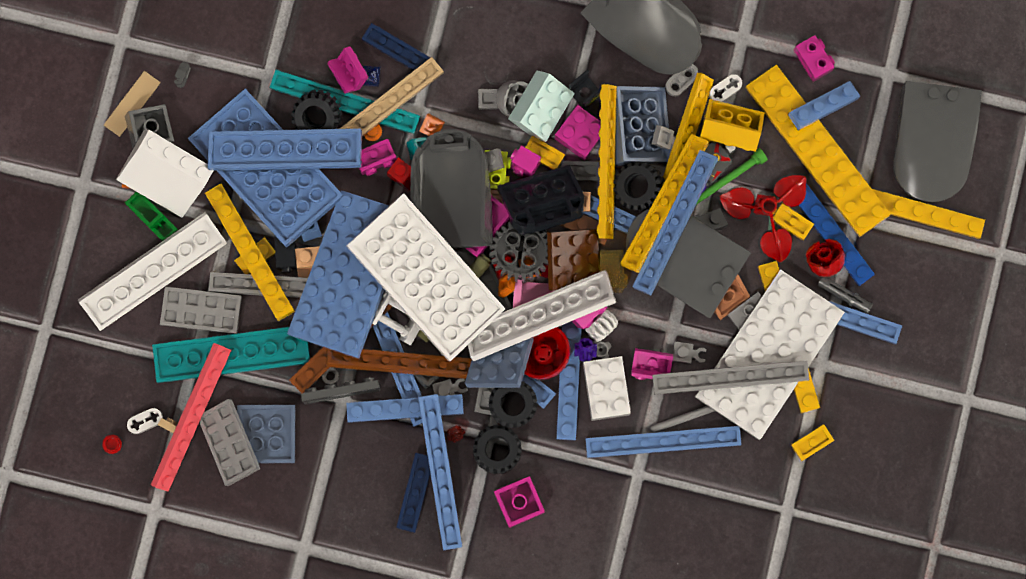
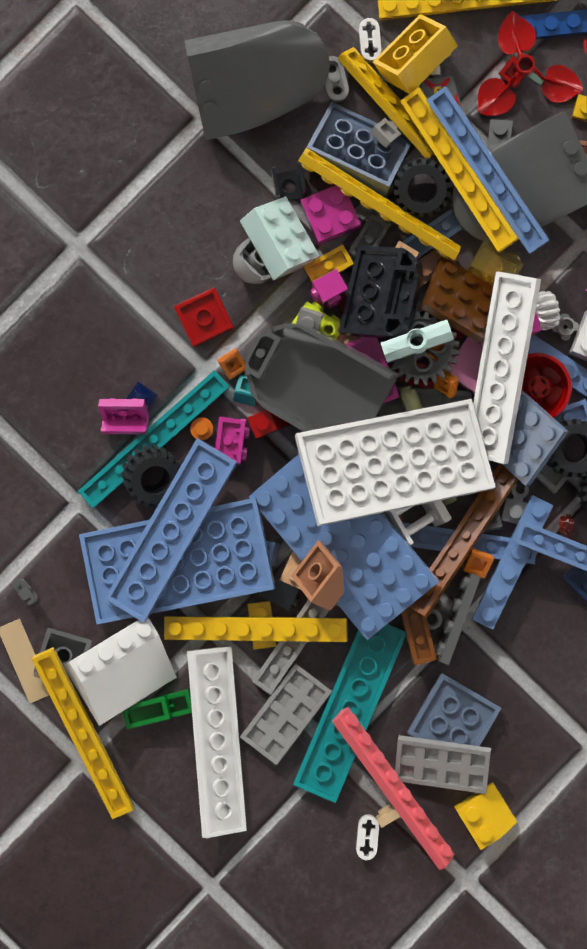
camera: 55 degrees left, 5 degrees up
(103, 172) = (82, 732): none -> yellow plate
(112, 444) = (371, 885): red plate -> none
(209, 497) = (486, 816): none -> yellow slope
(311, 272) = (320, 577): none -> nougat slope
(389, 384) = (478, 563): none -> orange plate
(394, 47) = (132, 351): dark blue plate -> none
(395, 97) = (181, 384): tan plate -> none
(454, 87) = (204, 317): none -> red tile
(487, 98) = (237, 289): light grey plate -> none
(512, 234) = (432, 336): none -> light aqua piece
(585, 350) = (560, 341): dark purple gear -> none
(757, 158) = (461, 53): bright green piece -> none
(792, 222) = (550, 52): yellow plate -> none

